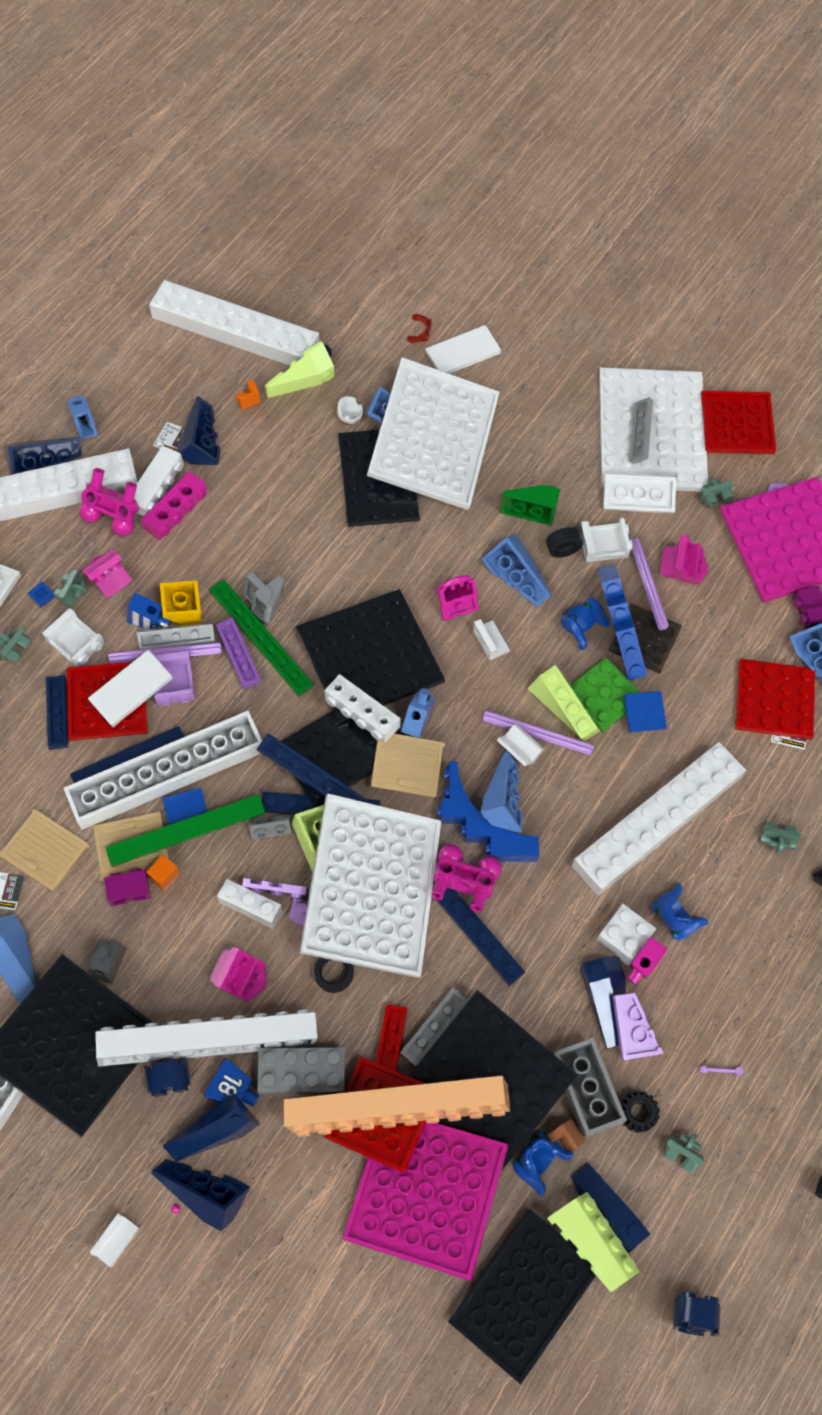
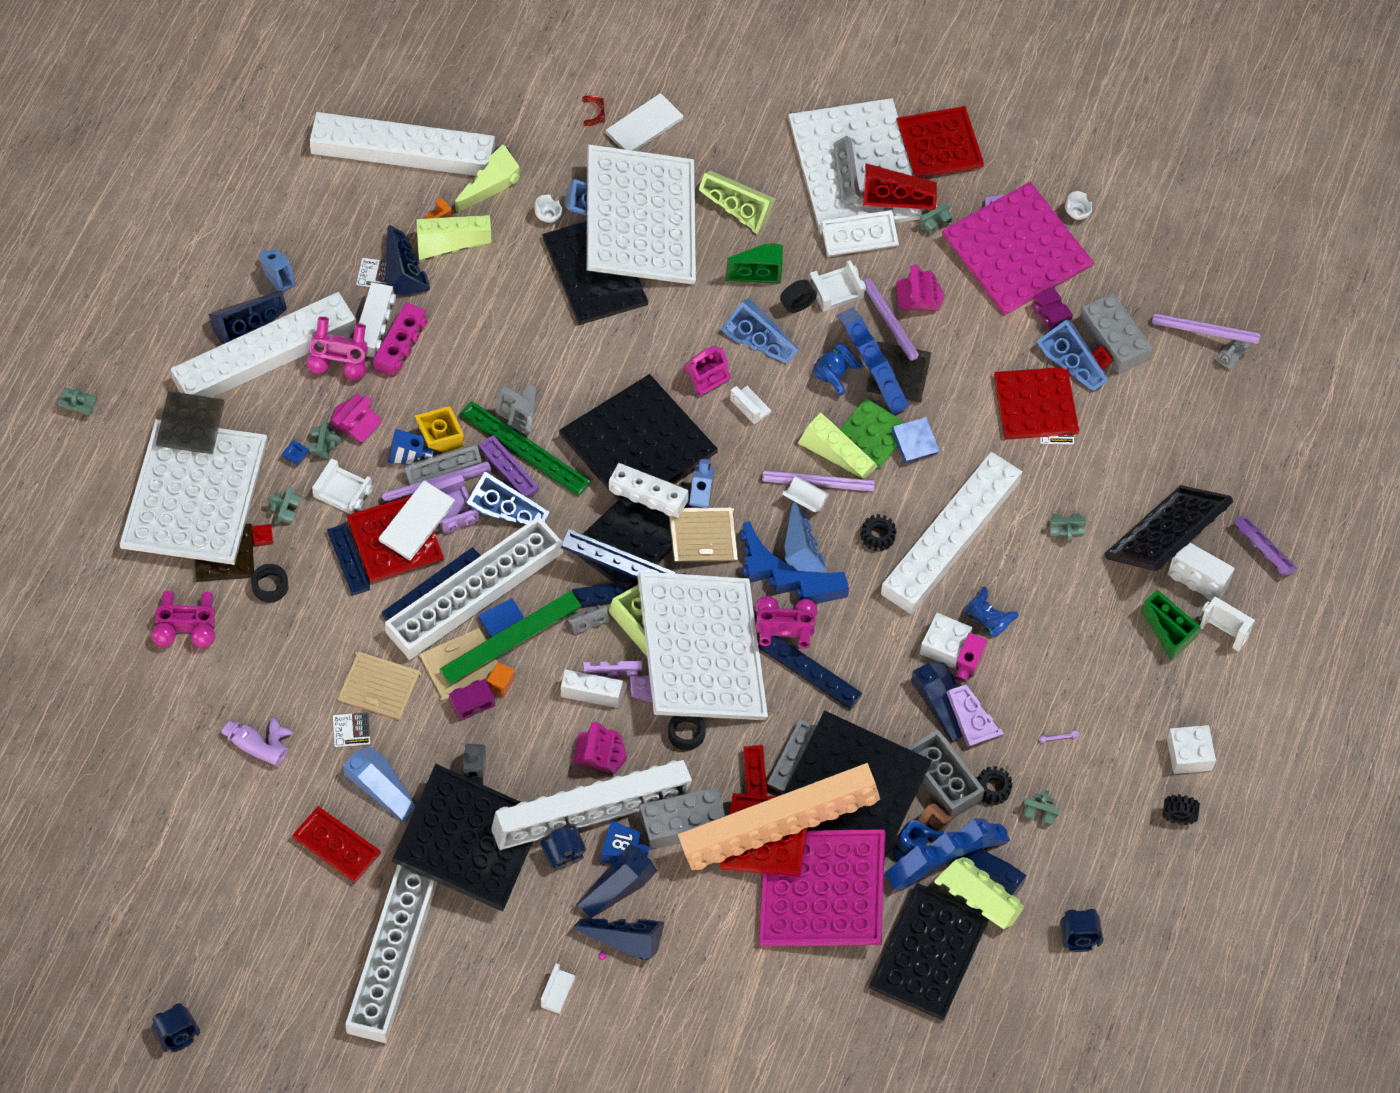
camera: 15 degrees left, 5 degrees down
(218, 686) = (501, 501): none -> medium blue wedge
(253, 416) = (451, 234): none -> yellowish green wedge
(530, 437) = (743, 202): none -> yellowish green wedge
(569, 1183) = (949, 846): none -> blue arch
(584, 789) = (878, 542): none -> black tyre
(686, 458) = (896, 189): none -> red wedge

